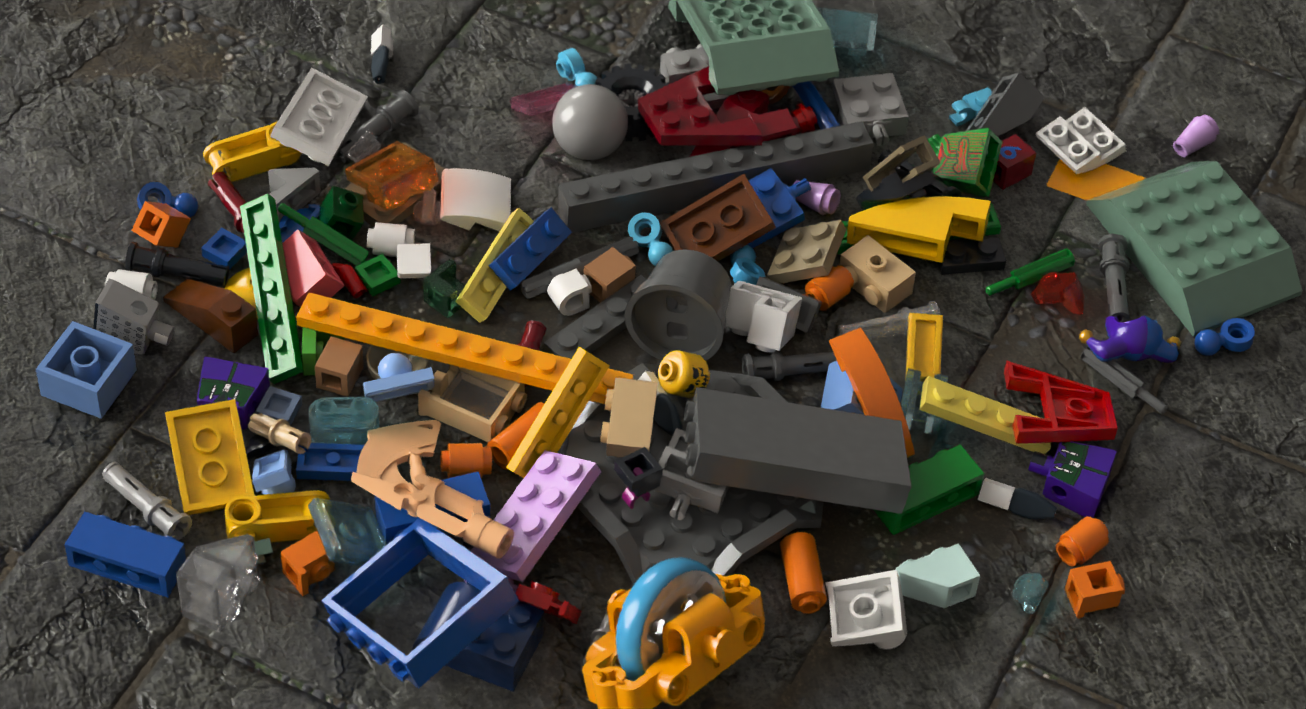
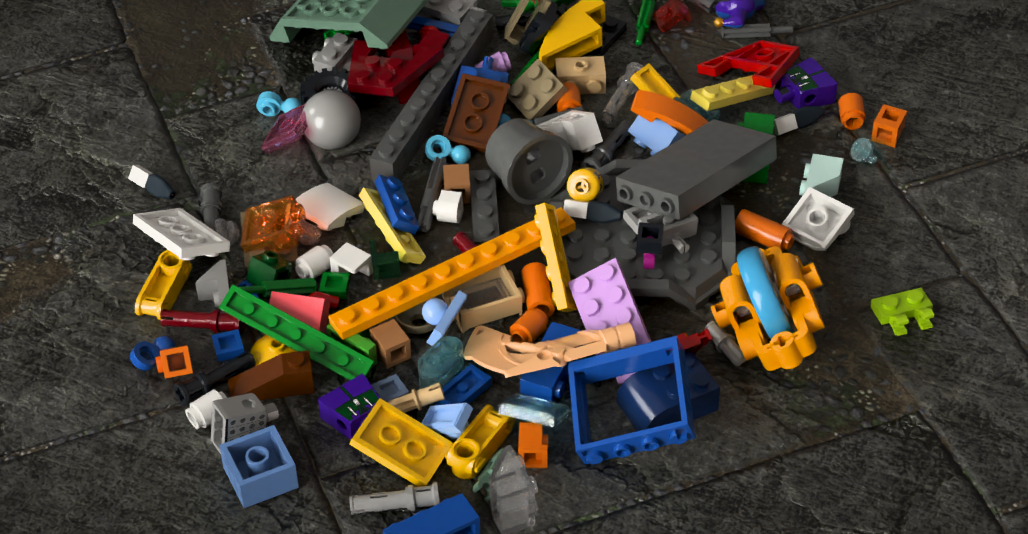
camera: 45 degrees left, 5 degrees down
(631, 416) = (598, 223): tan brick -> none

